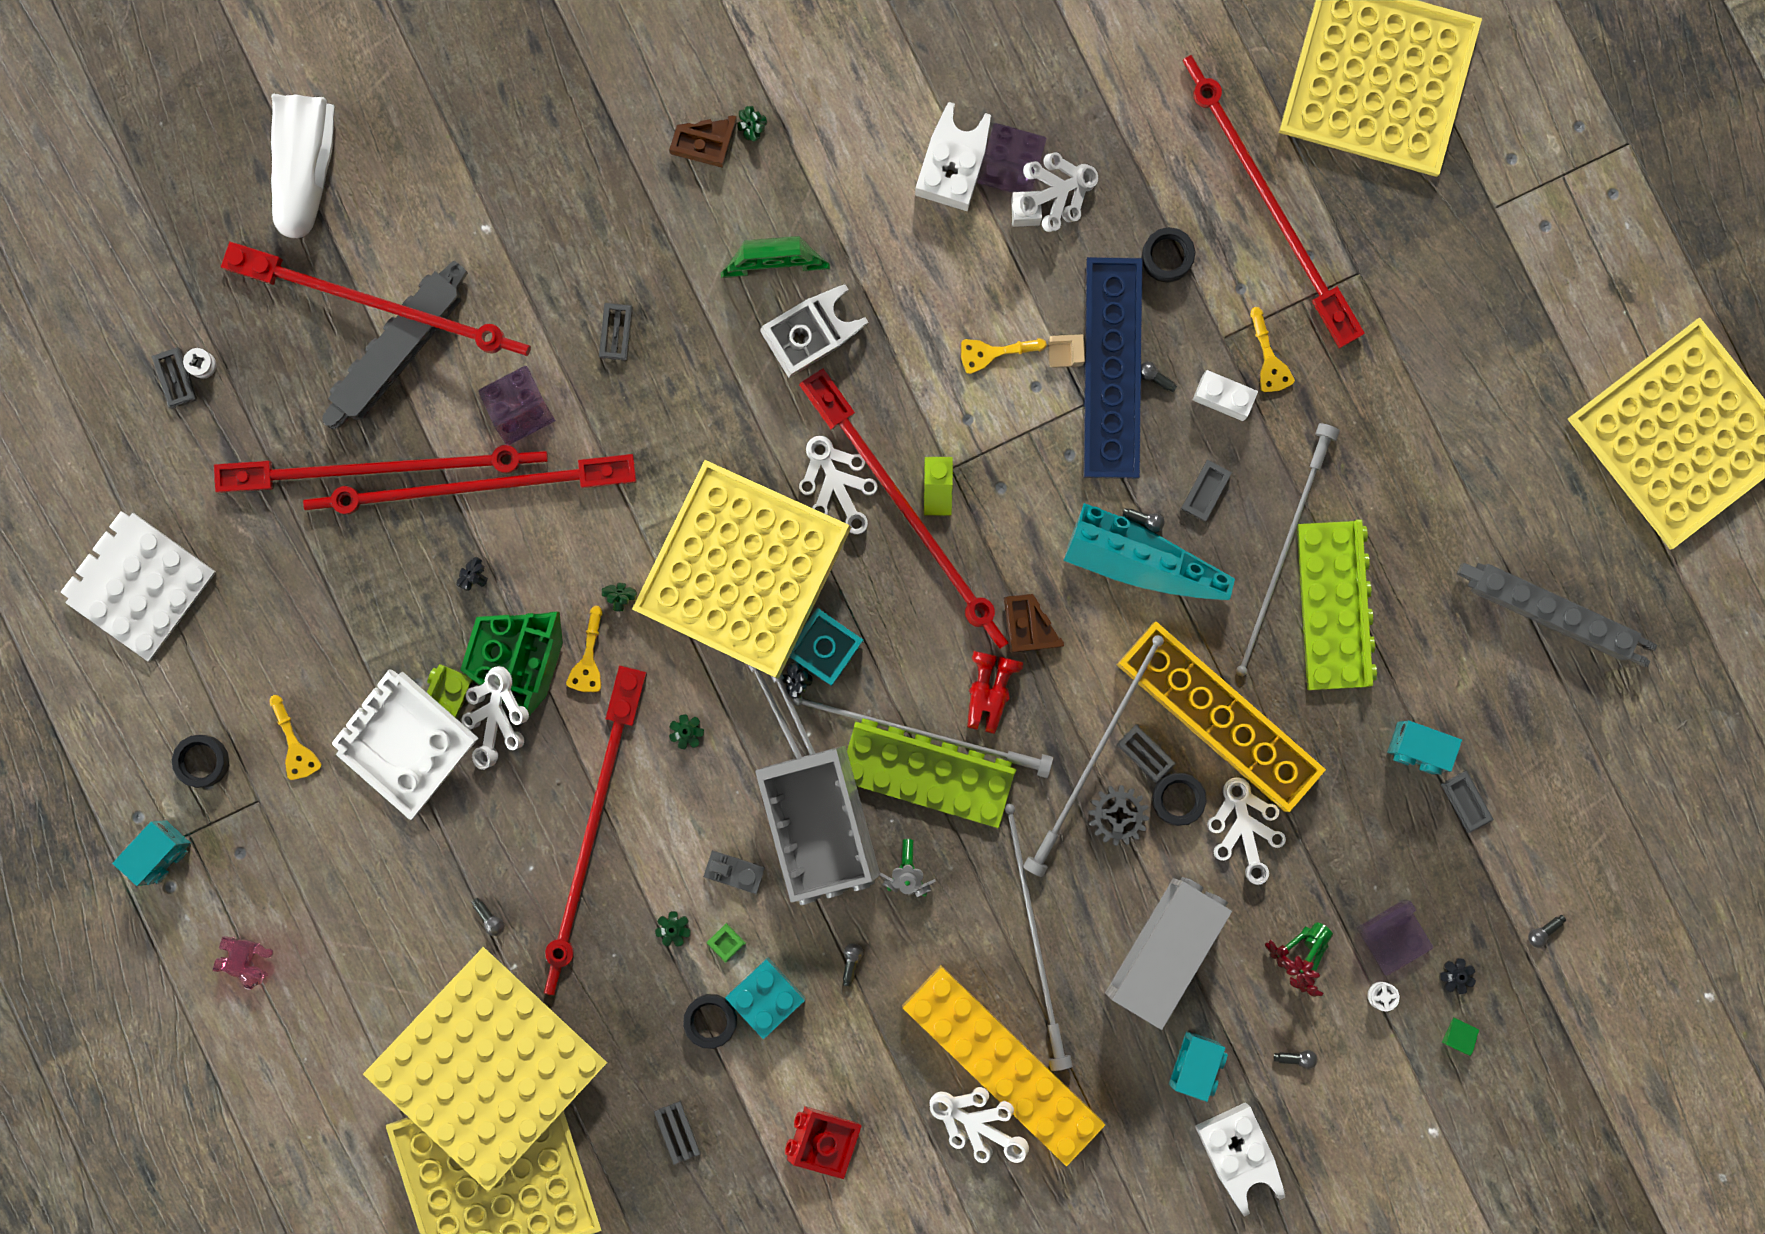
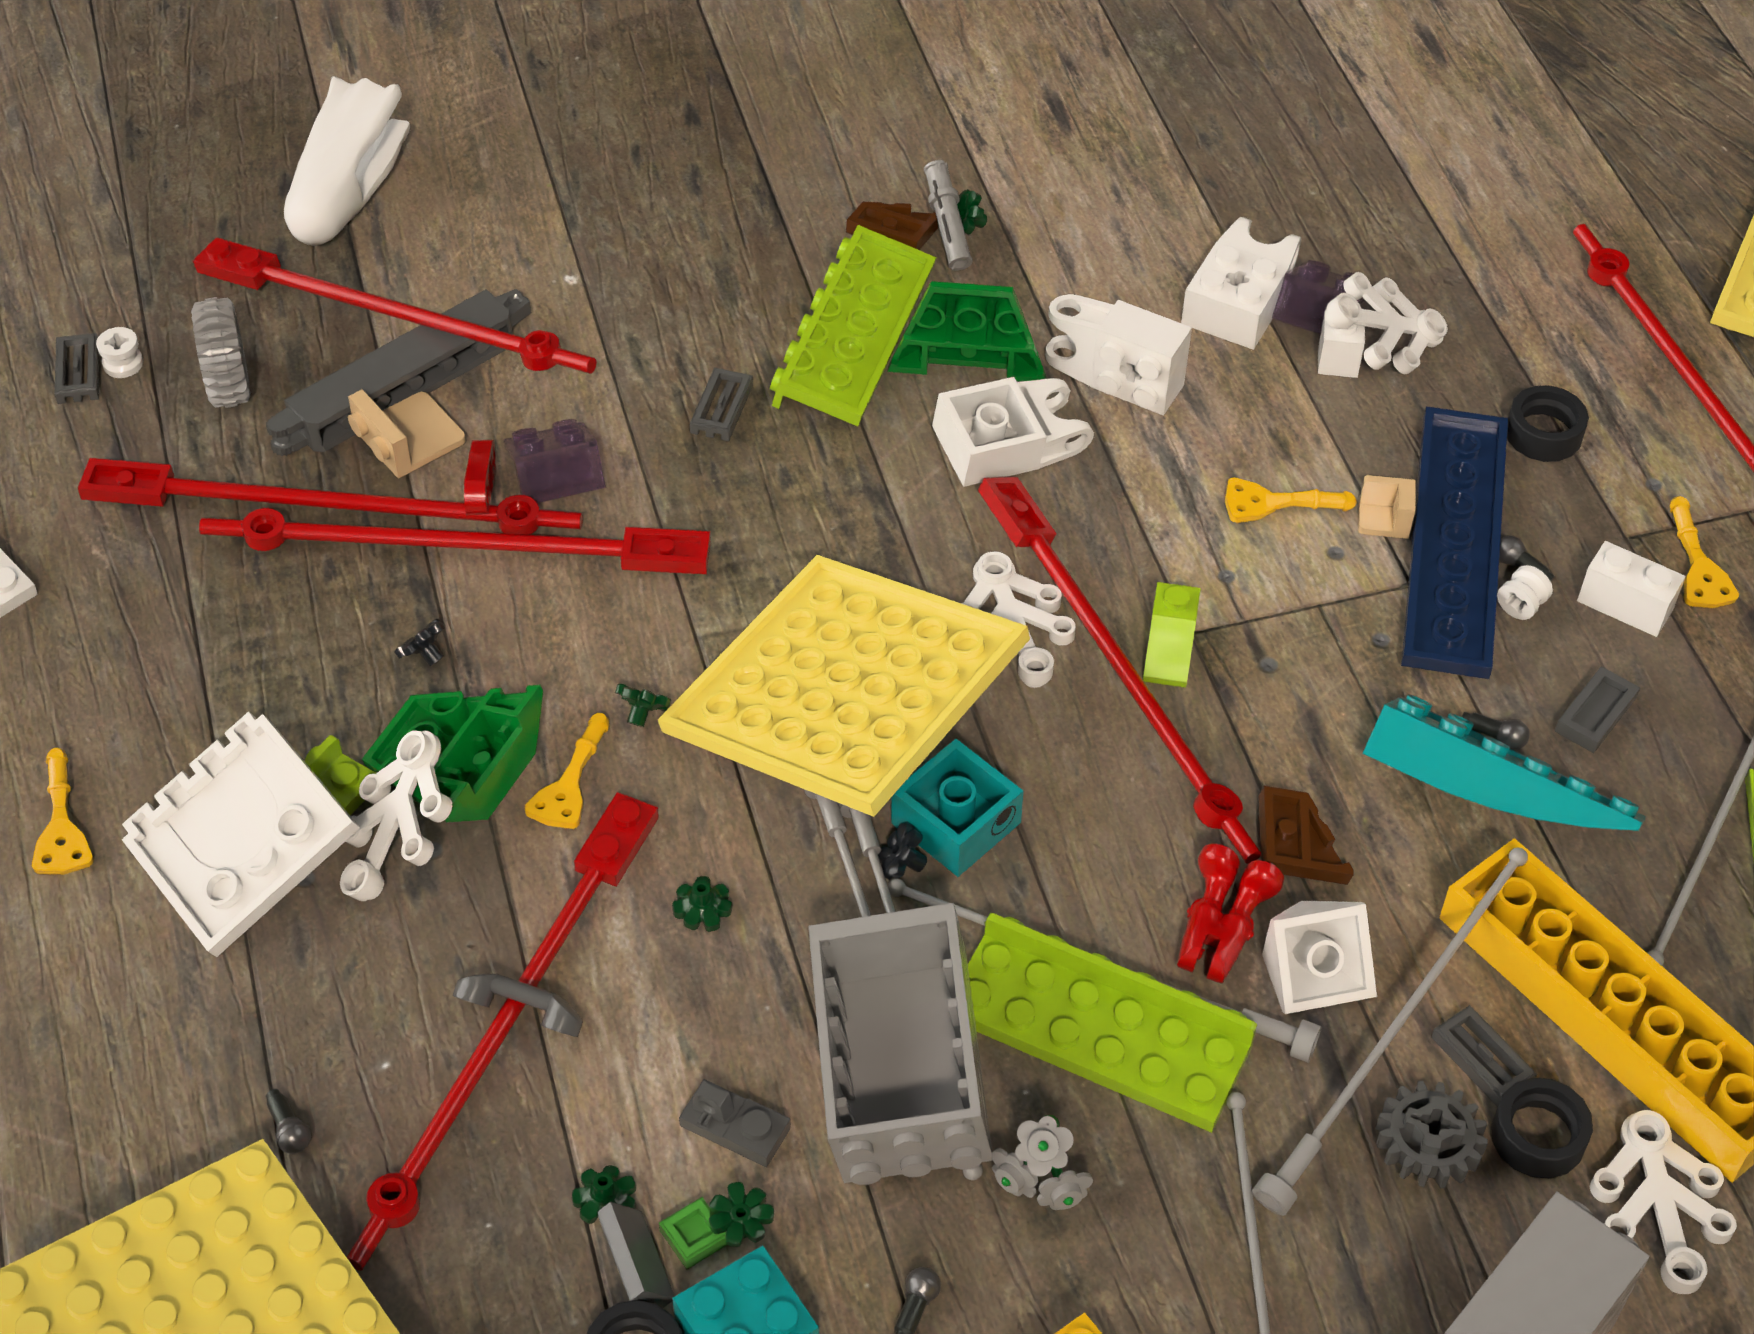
camera: 10 degrees right, 35 degrees down
(272, 363) = (220, 352): none -> light grey gear
(413, 399) = (406, 432): none -> tan bracket
(474, 439) = (479, 477): none -> red beam
(623, 826) = (558, 1012): none -> dark grey bar
(692, 247) = (853, 325): none -> lime bracket
(698, 966) = (635, 1254): none -> dark grey tile
(739, 131) = (944, 202): none -> light grey pin
(743, 937) = (740, 1214): none -> dark green plant
(876, 251) = (1121, 350): none -> white brick
(1048, 710) = (1320, 955): none -> white slope
(1158, 408) = (1524, 592): none -> white wheel

